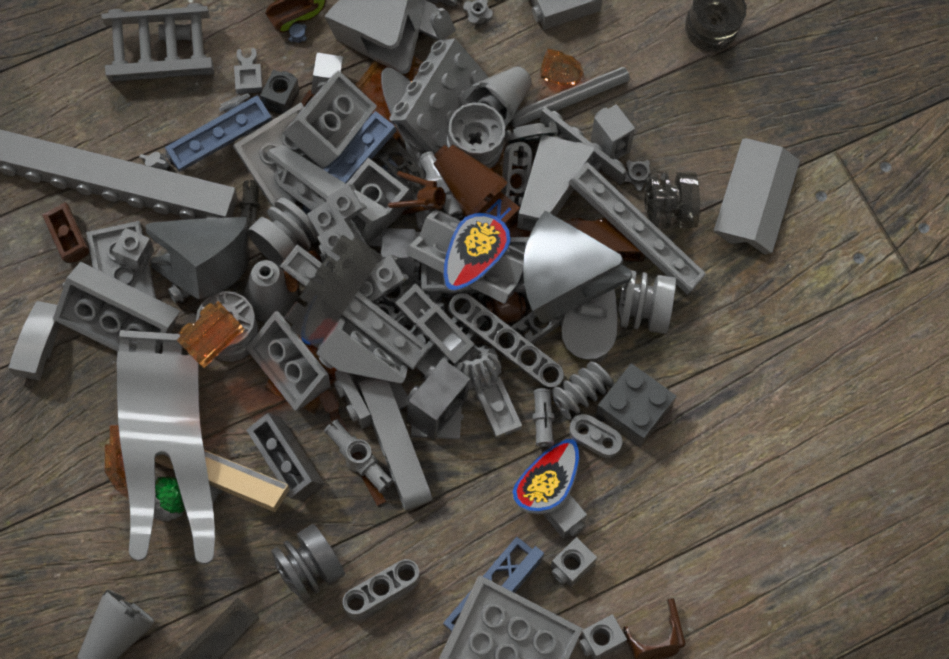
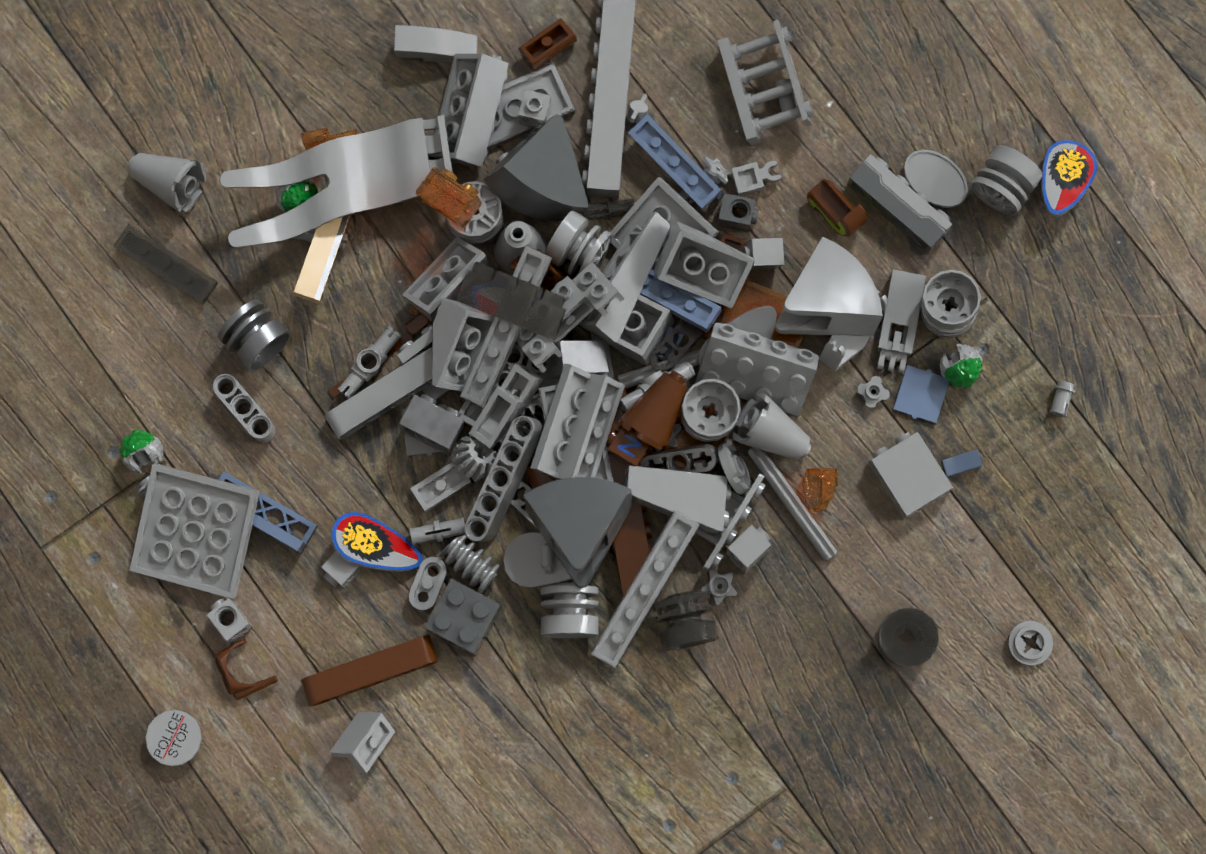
camera: 85 degrees right, 10 degrees up
(285, 456) = (354, 295): flat silver brick -> none
(297, 33) = (811, 217): sand blue piece -> none
(427, 198) = (634, 375): reddish brown plant -> none
(474, 250) = (577, 428): shield -> none
(577, 551) = (307, 587): light grey brick -> none
(675, 506) = (369, 670): none -> reddish brown beam
(745, 520) = (364, 740): none -> light grey panel
(757, 195) = (714, 709): light grey slope -> none

